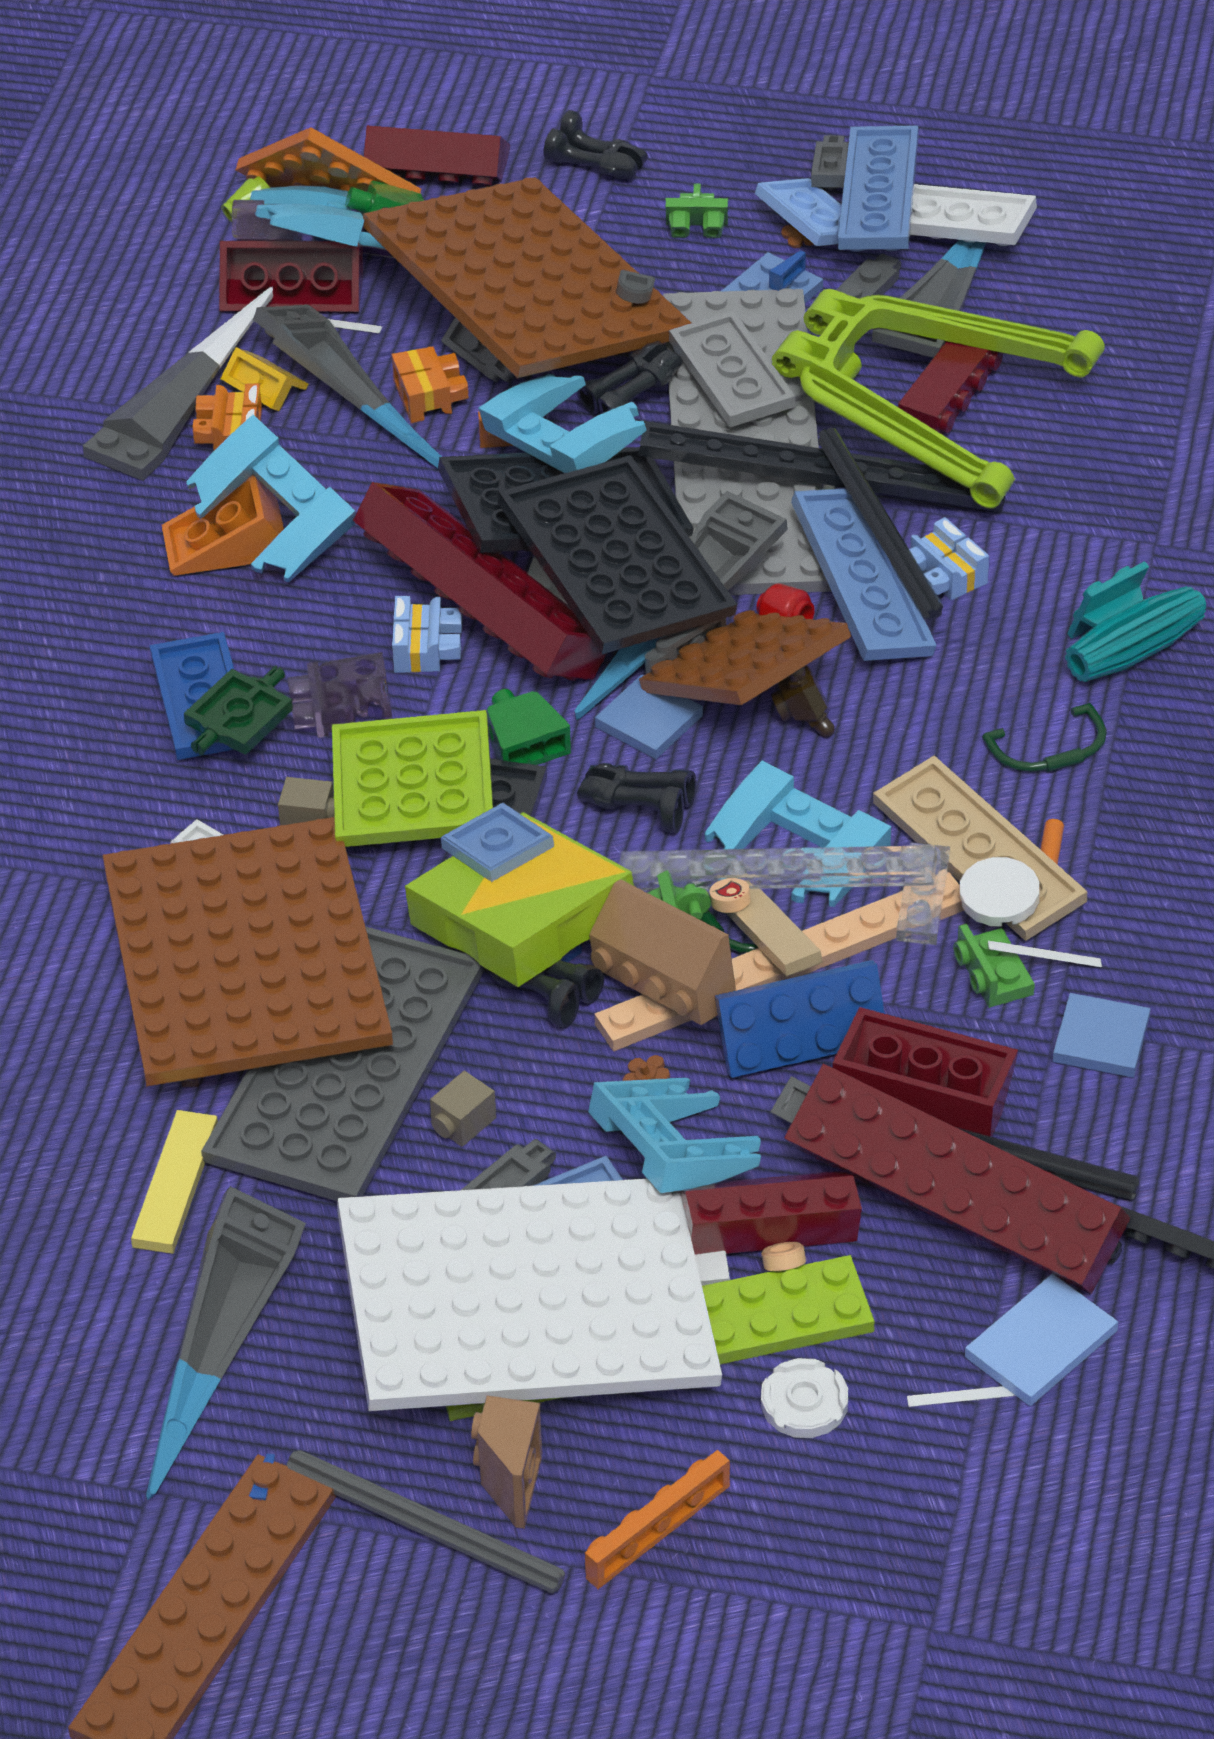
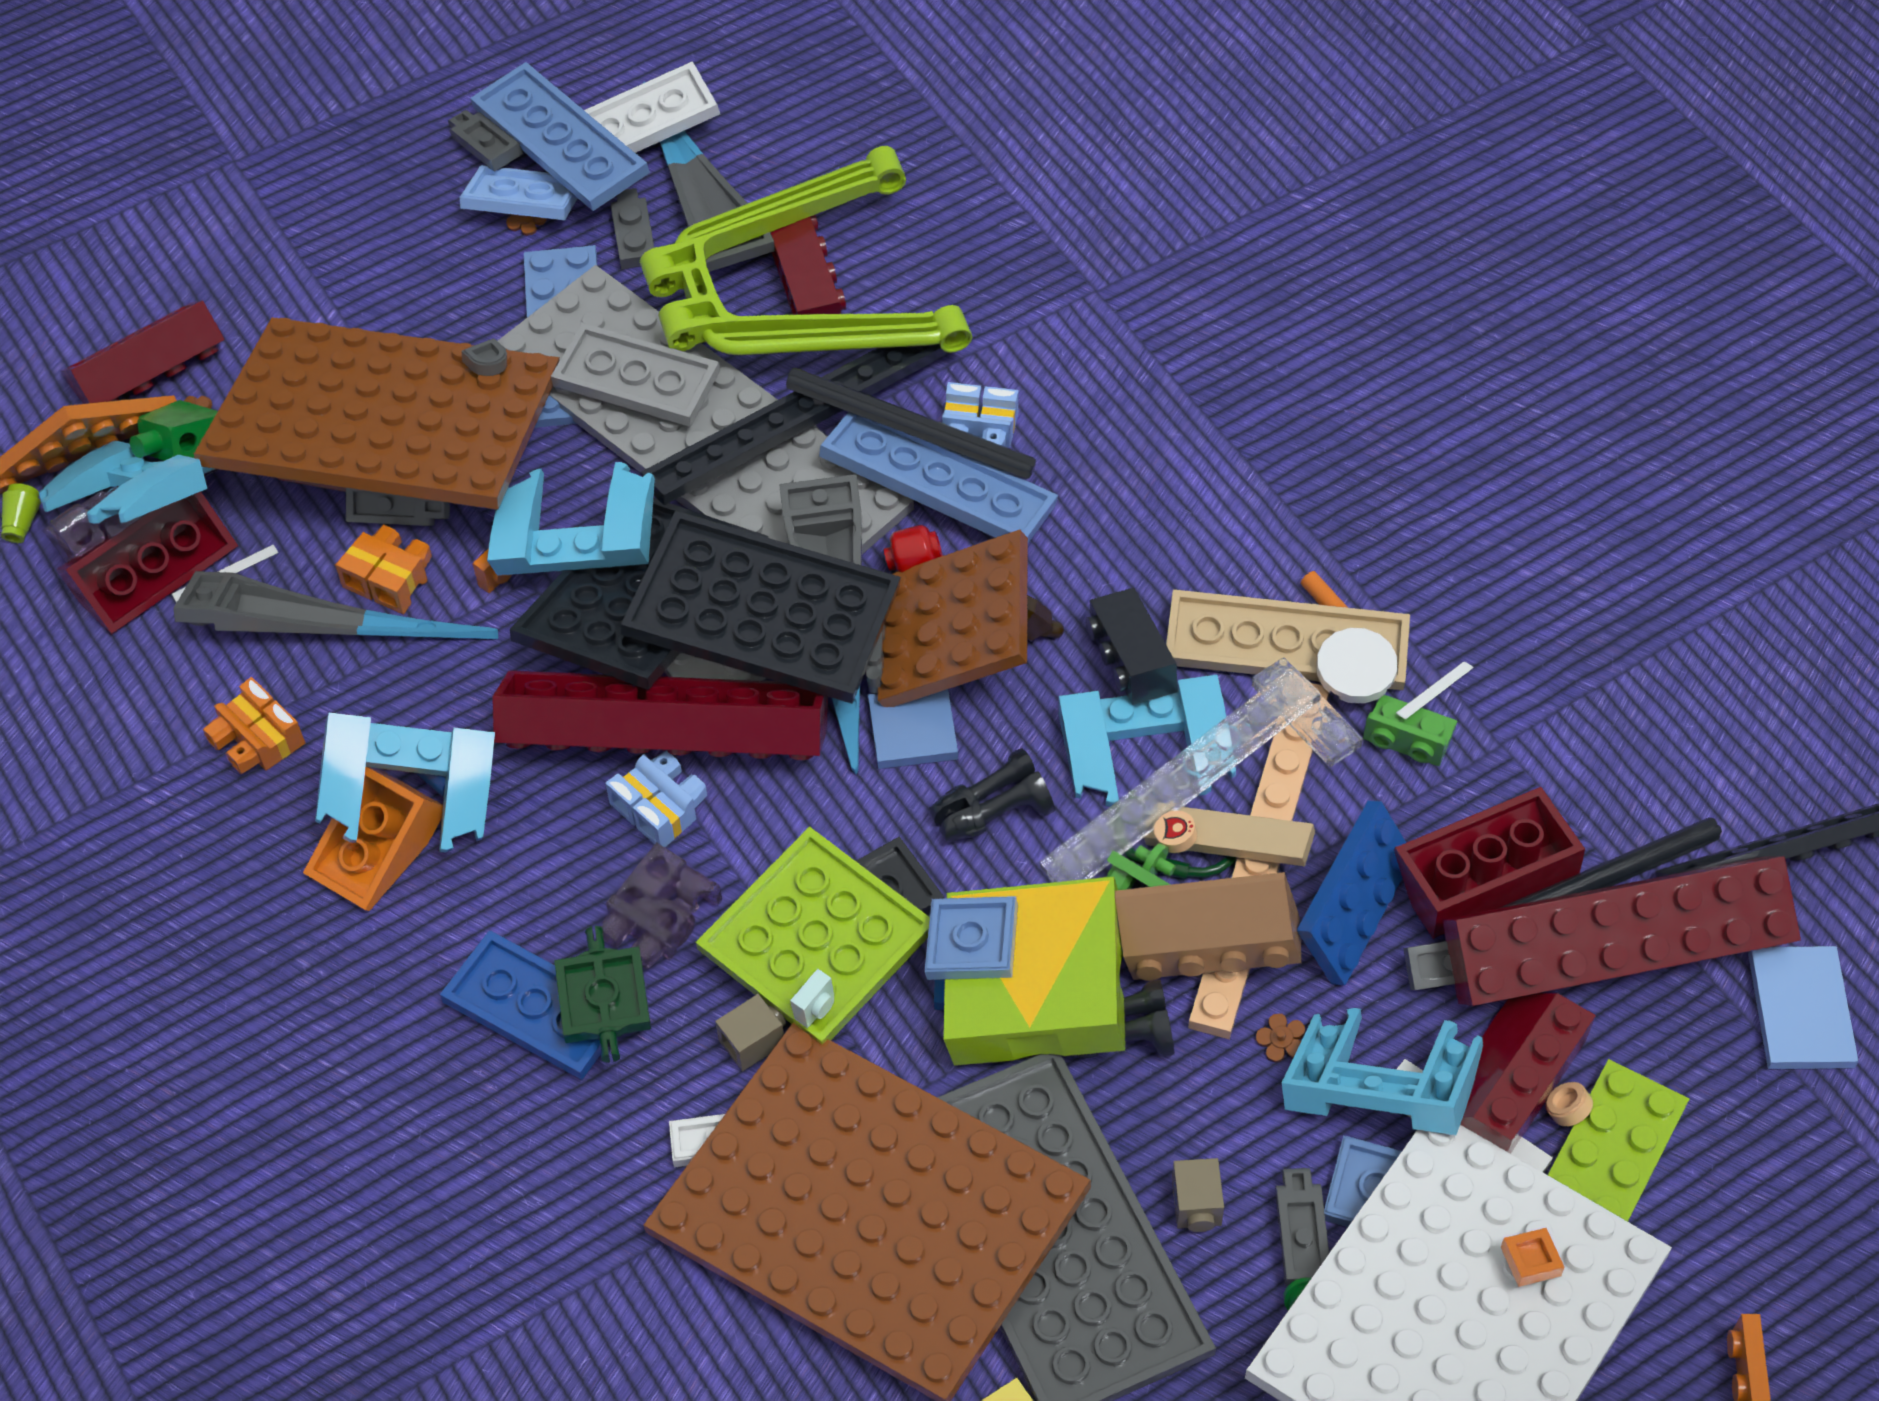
camera: 45 degrees left, 10 degrees up
(148, 424) = (179, 786): dark grey plate -> none
(251, 368) = (226, 668): yellow panel -> none
(353, 801) = (813, 999): none -> light aqua plate
(526, 728) = (841, 812): green torso -> none
(573, 146) = (299, 254): black piece -> none
(604, 1286) = (1532, 1257): none -> orange plate
(648, 367) = (572, 476): black piece -> none
(696, 209) = (425, 252): bright green hips -> none
(787, 271) = (571, 262): blue piece -> none
(804, 1398) = (1714, 1207): white tile -> none
(854, 767) = (1132, 646): none -> black brick
(957, 1396) = (1800, 1105): white sticker -> none
(1055, 761) = (1247, 524): dark green piece -> none
(1101, 1035) = (1544, 723): medium blue tile -> none
(1125, 625) = (1177, 370): teal plate -> none

